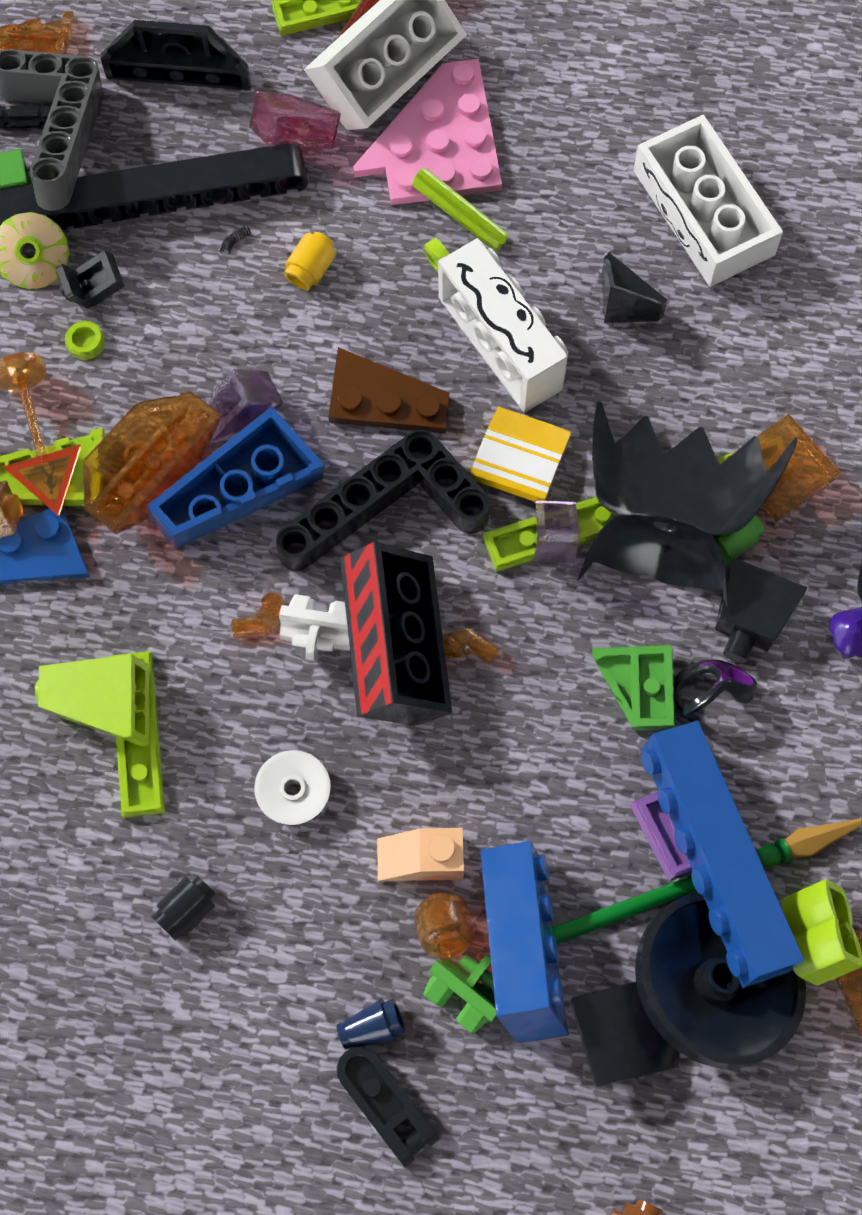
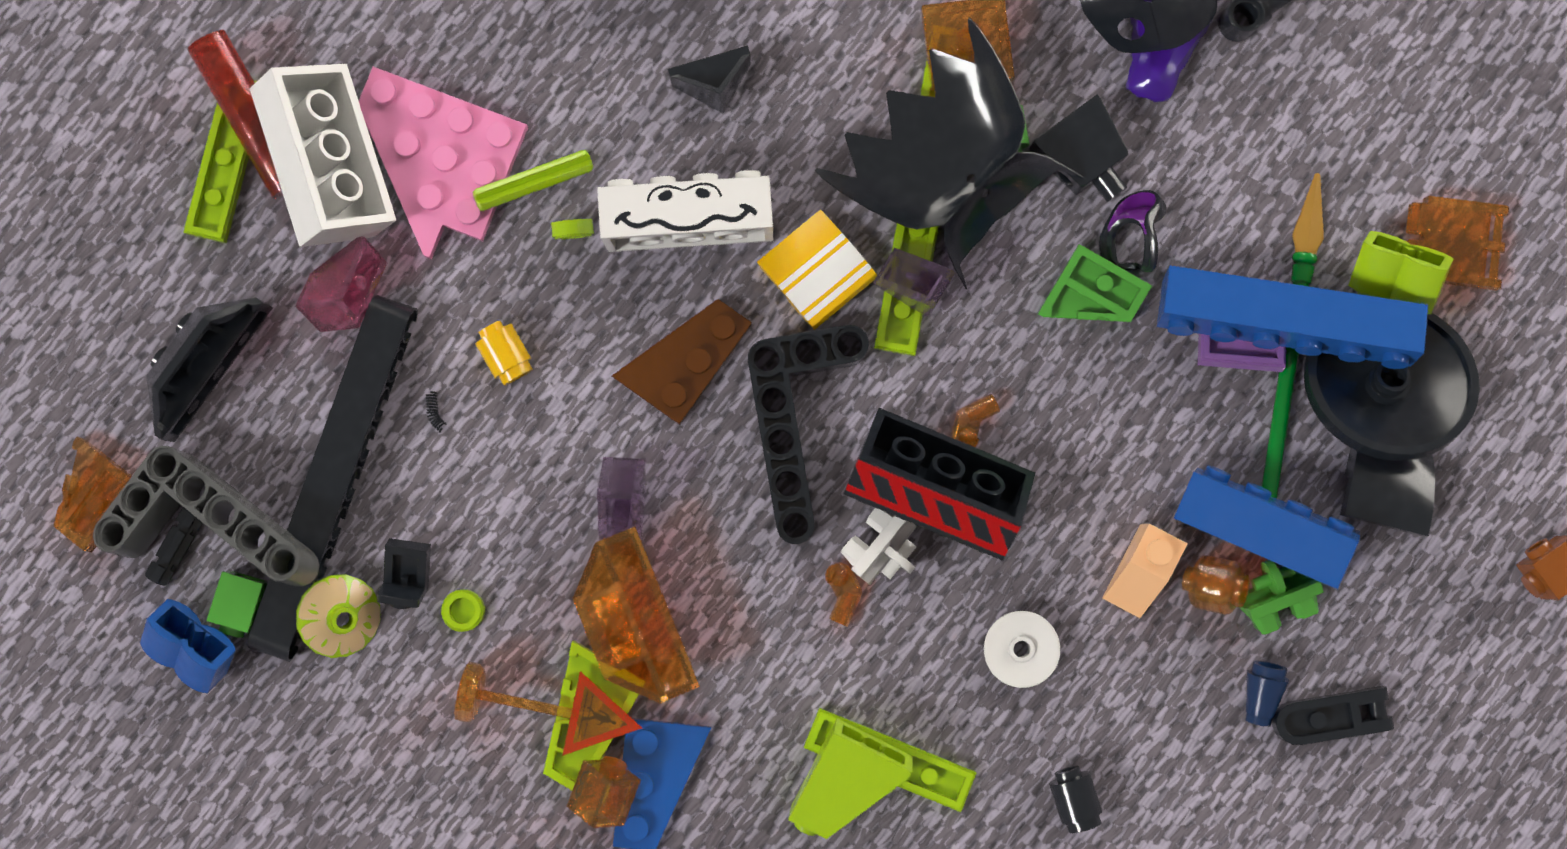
camera: 60 degrees left, 15 degrees up
(236, 480) = (701, 544): blue wedge -> none

